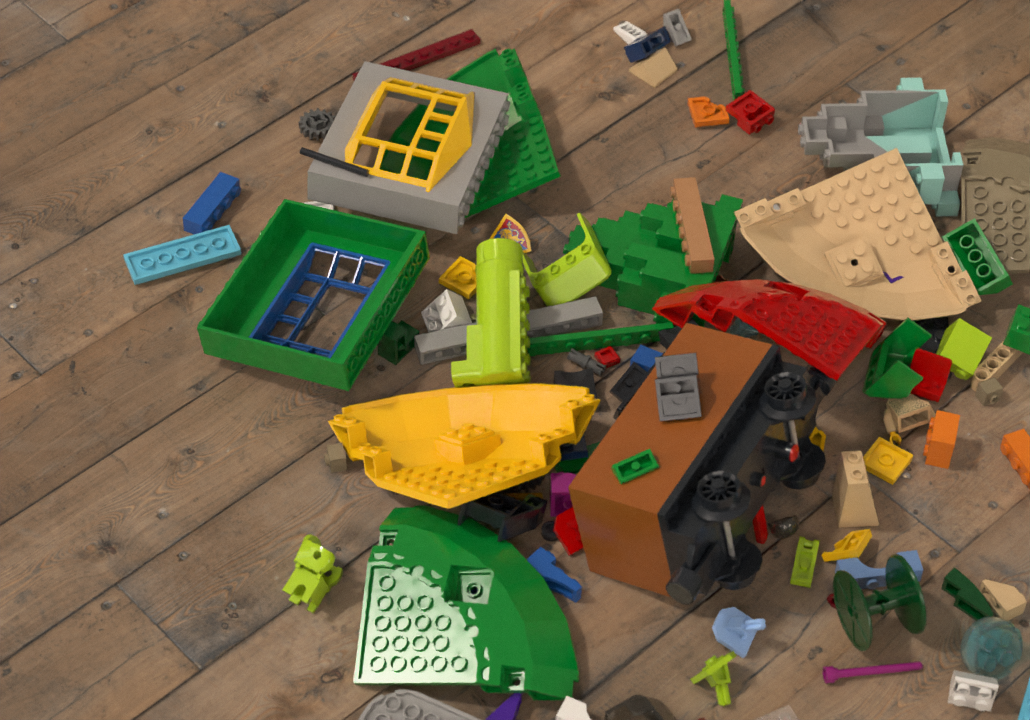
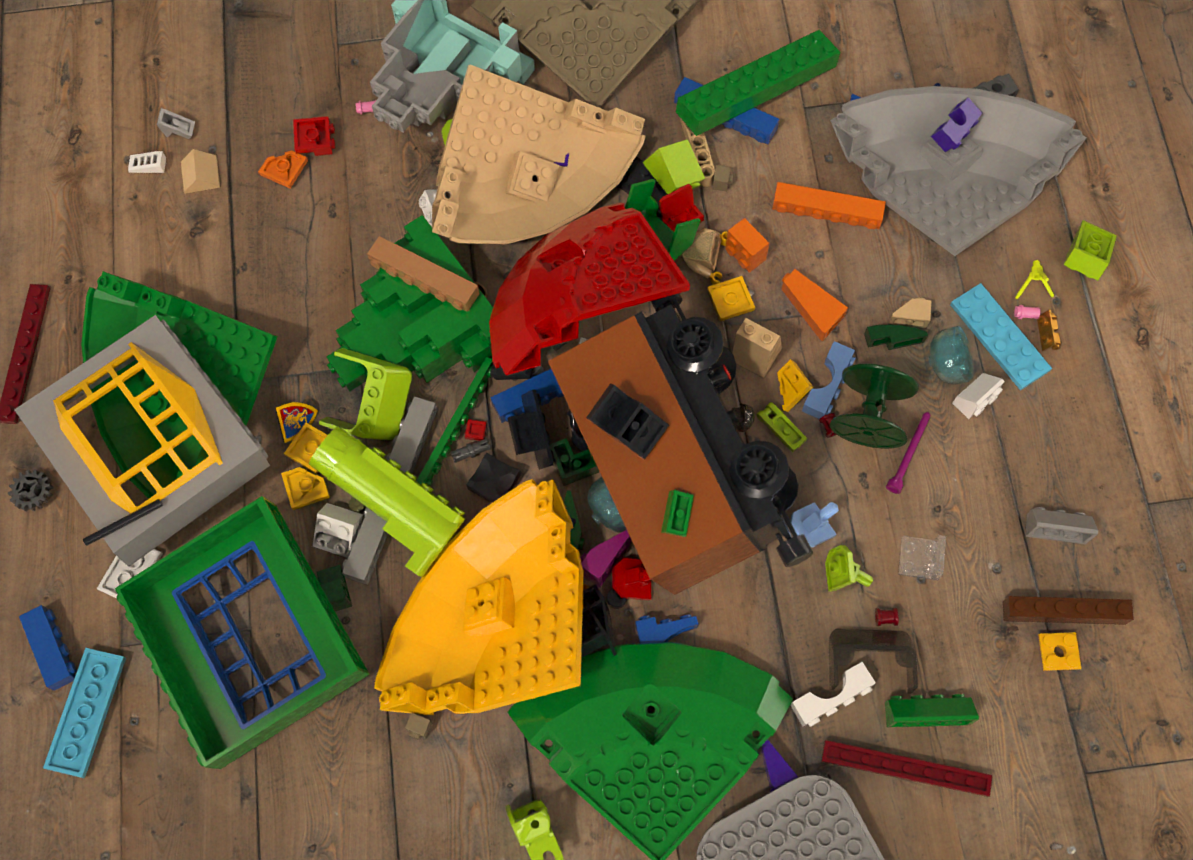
camera: 50 degrees left, 20 degrees up
(647, 44) = (174, 160): dark blue slope -> none
(732, 48) = (232, 99): green plate -> none
(939, 526) = (813, 303): none -> orange slope
(978, 258) = (601, 89): green slope -> none

